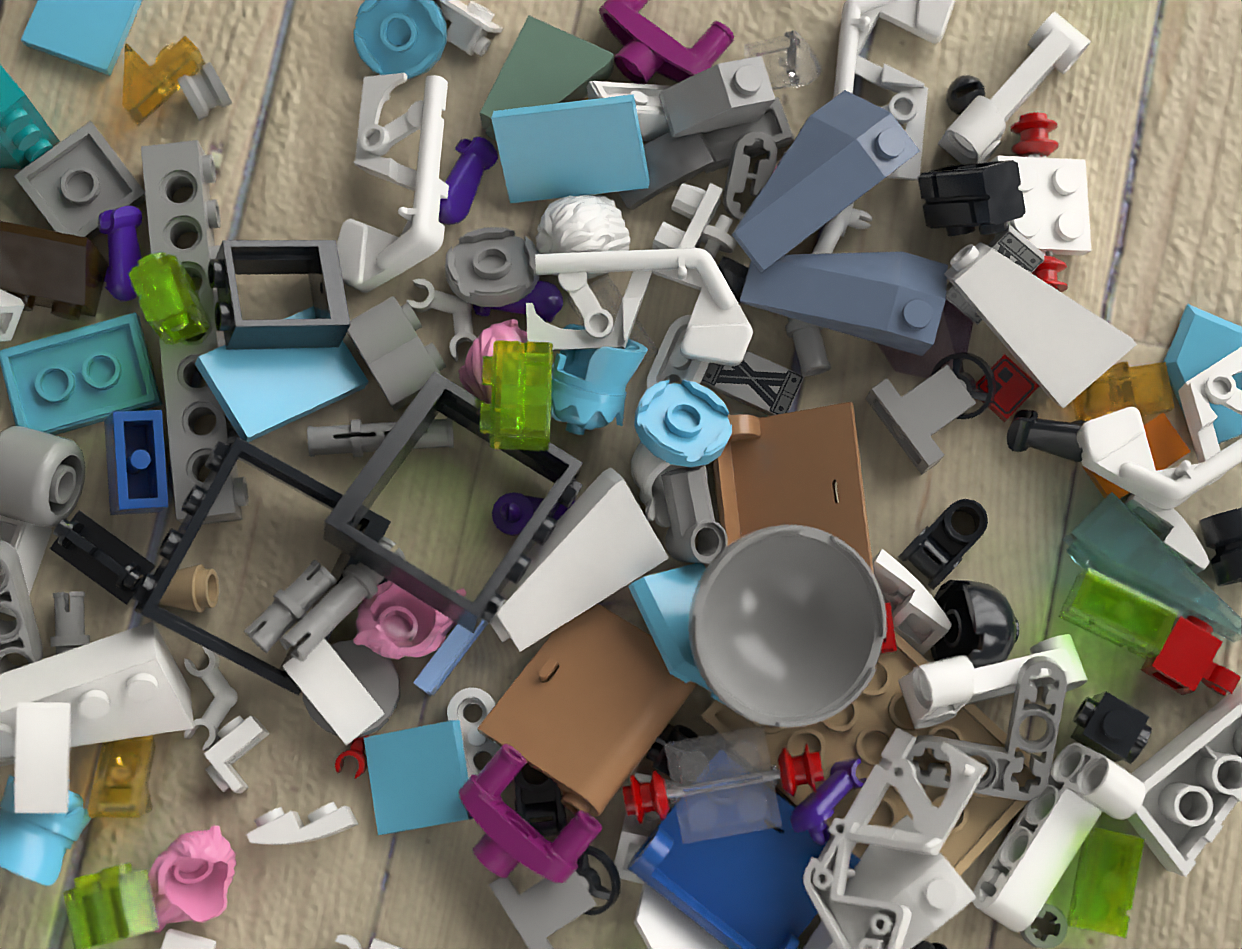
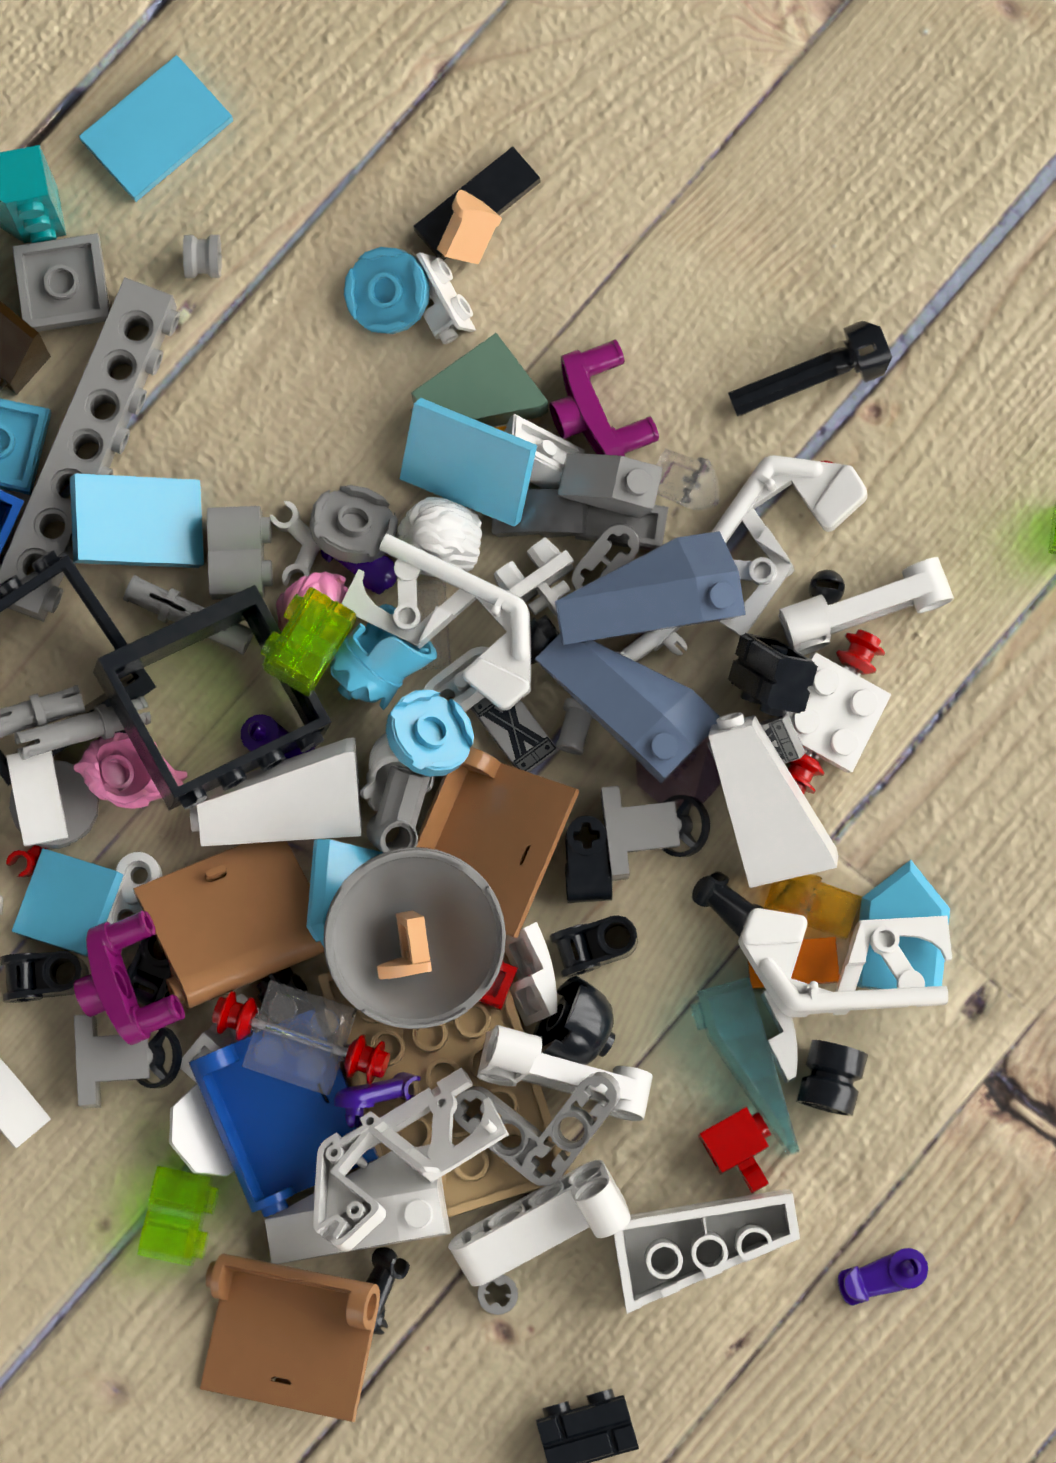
camera: 35 degrees right, 0 degrees up
(122, 249) = (60, 370): dark purple piece -> none
(150, 87) = (159, 230): clear yellow slope -> none
(168, 298) = (75, 415): clear neon green brick -> none
(261, 257) = (185, 426): black window -> none
(369, 254) = (258, 460): white piece -> none
(429, 864) = (34, 975): none -> black piece
(447, 658) = (141, 821): light blue tile -> none
(465, 178) = (358, 449): dark purple piece -> none
(786, 638) = (413, 947): none -> light nougat tile
(897, 471) = (587, 870): none -> black piece
(1012, 387) = (720, 848): red tile -> none
(1105, 882) = (562, 1284): clear neon green brick -> none
(1111, 727) = (641, 1166): black brick -> none
(1118, 613) = (698, 1077): clear neon green brick -> none

